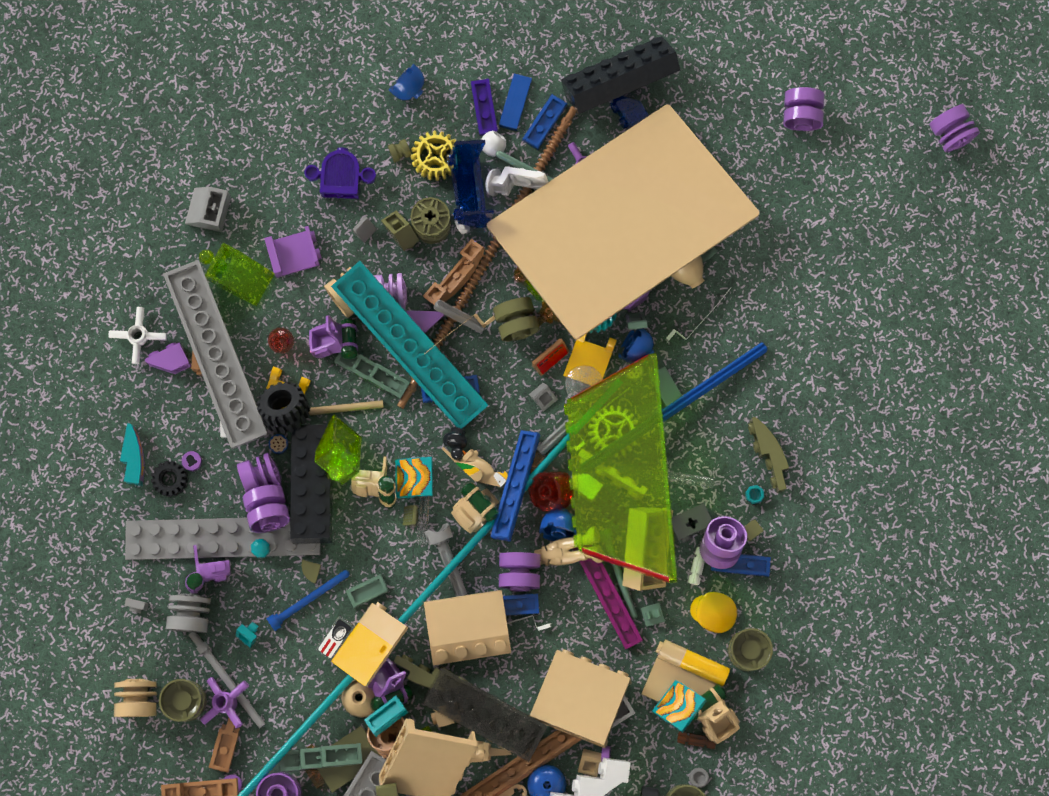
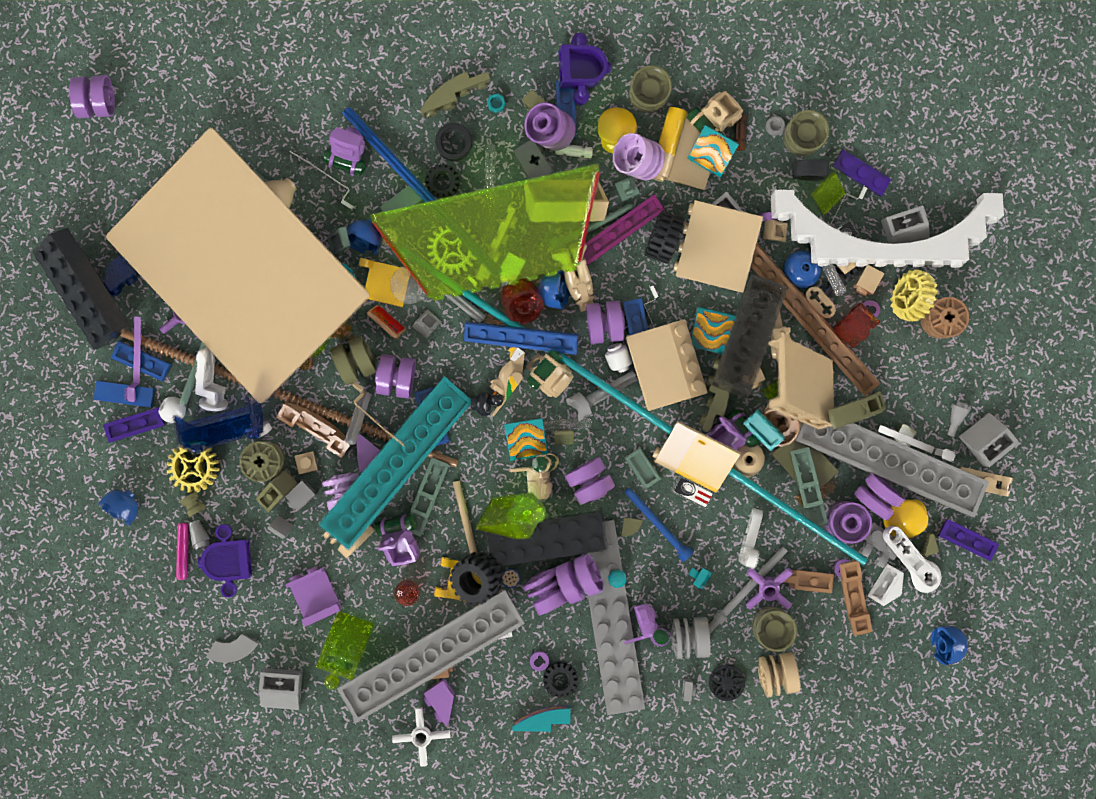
camera: 100 degrees left, 10 degrees up
(136, 646) = (727, 682): none -> black wheel
(252, 169) = (232, 651): none -> light grey tile
(266, 685) = (748, 555): none -> white beam
(355, 135) = (182, 551): none -> dark pink axle
(357, 535) = (592, 485): none -> medium lavender wheel
(368, 152) = (198, 535): none -> light grey cone
(392, 252) = (300, 495): none -> light grey brick
(423, 262) = (306, 462): none -> tan plate
(482, 581) = (618, 357): none -> white head
(496, 353) = (389, 375): none -> medium lavender wheel
(498, 679) = (711, 329): none -> slope
(516, 107) = (130, 392): none -> medium lavender piece
(597, 643) = (665, 237): none -> black tyre
(681, 627) = (638, 157): none -> lavender wheel
(682, 419) = (442, 170): none -> black tyre
(720, 432) = (448, 128): none -> black tyre
(723, 340) = (345, 151): none -> medium lavender piece
(780, 584) = (581, 67): none -> dark purple piece

